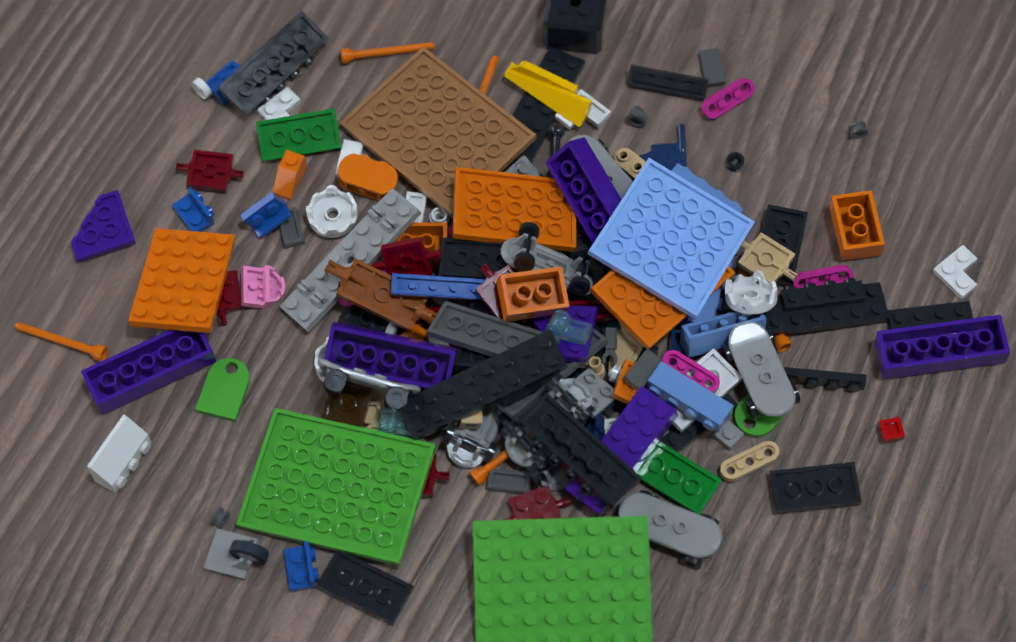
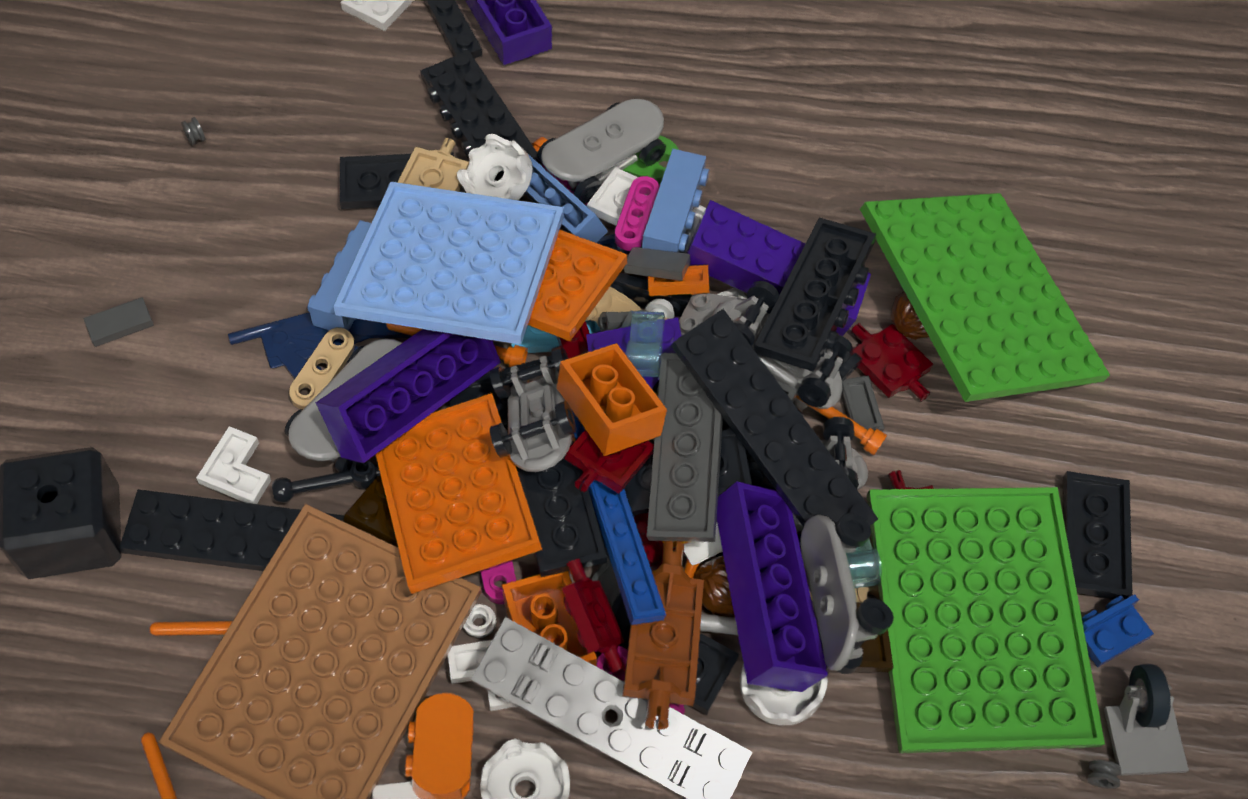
camera: 115 degrees left, 5 degrees down
(551, 90) = (212, 513): yellow wedge -> none
(637, 117) = (231, 391): dark grey tile -> none
(668, 81) = (158, 367): black plate -> none
(675, 527) = (847, 180): light grey piece -> none
(679, 478) = (778, 200): green plate -> none
(735, 96) = (172, 287): dark pink plate -> none
(739, 165) = (282, 265): black bush -> none
(755, 454) = (730, 160): tan plate -> none
(815, 487) = (723, 82): black plate -> none
(829, 379) = (575, 87): black plate -> none
(830, 273) = (432, 122): dark pink plate -> none
(856, 225) = (348, 99): orange brick -> none
(891, 429) = (617, 25): red plate -> none

